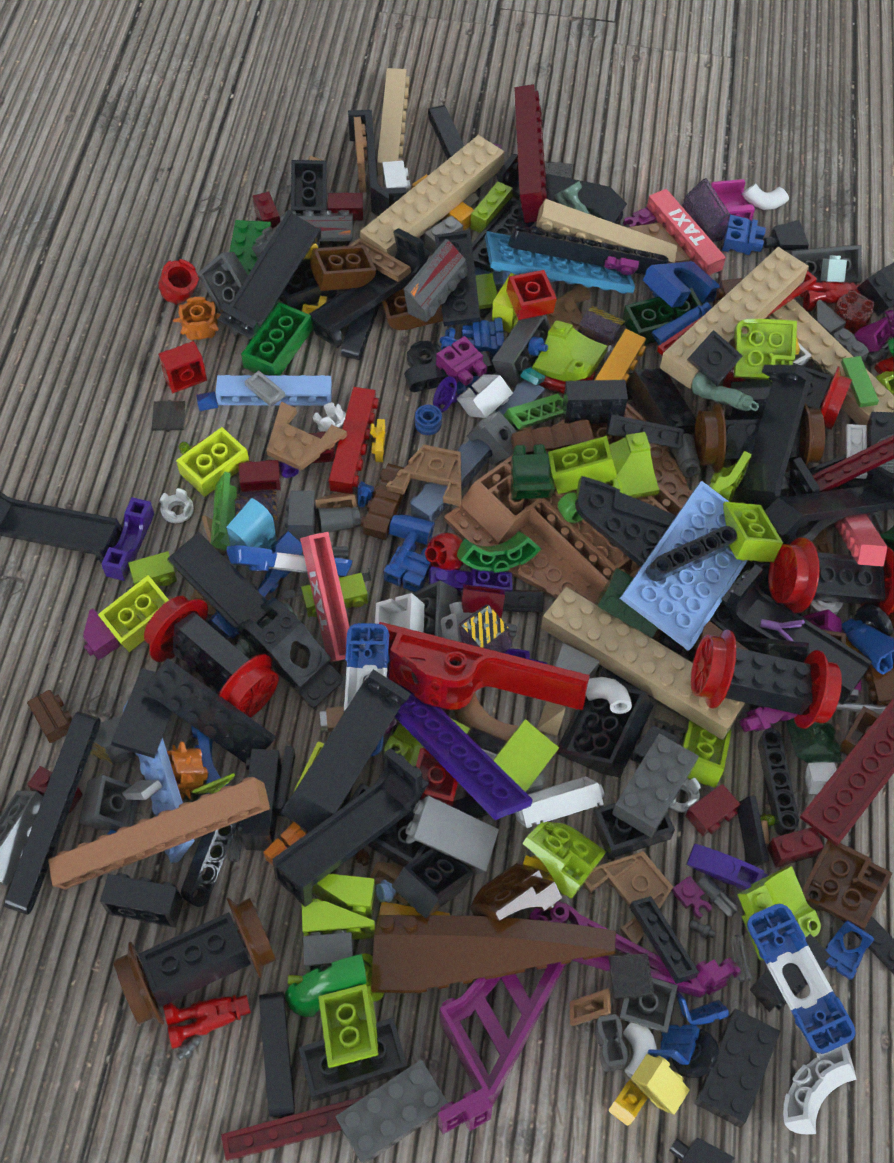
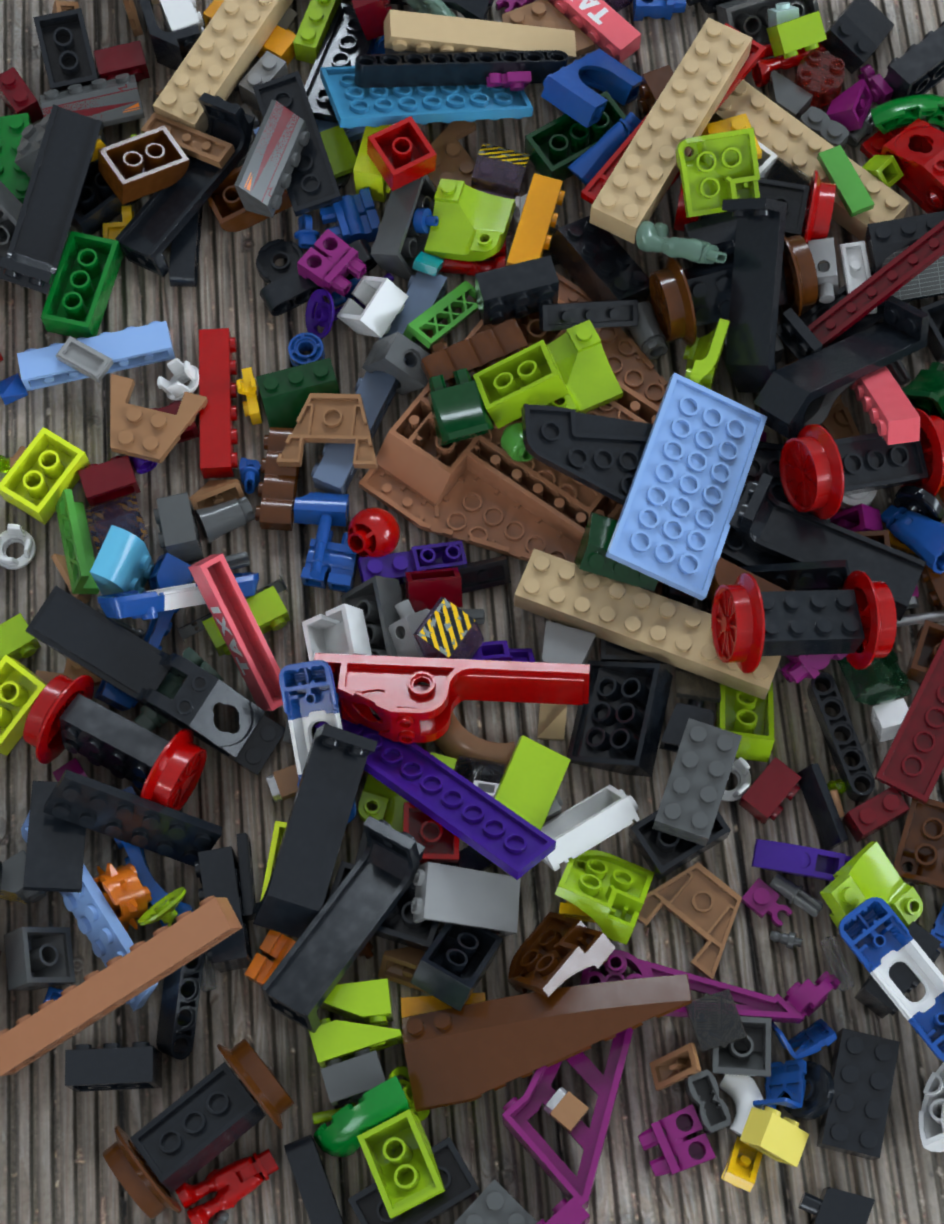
camera: 10 degrees left, 10 degrees up
(142, 790) = (76, 933): light grey tile -> none
(385, 891) = (401, 985): light blue plate -> none
(406, 440) = (288, 389): none -> dark green slope
(493, 1018) = (566, 1109): none -> medium nougat piece
(498, 557) = (440, 526): green brick -> none
(575, 1065) = (672, 1138): none -> magenta hips
(612, 691) = (618, 671): white cylinder -> none
(664, 940) = (744, 967): black plate -> none
(691, 553) = (674, 484): black beam -> none
(714, 357) = (658, 200): black tile -> none
(755, 533) = (748, 427): lime slope -> none
(778, 626) = (804, 542): medium lavender plant -> none
(832, 444) = (827, 272): none -> light grey torso
(841, 277) = (797, 34): none -> lime brick

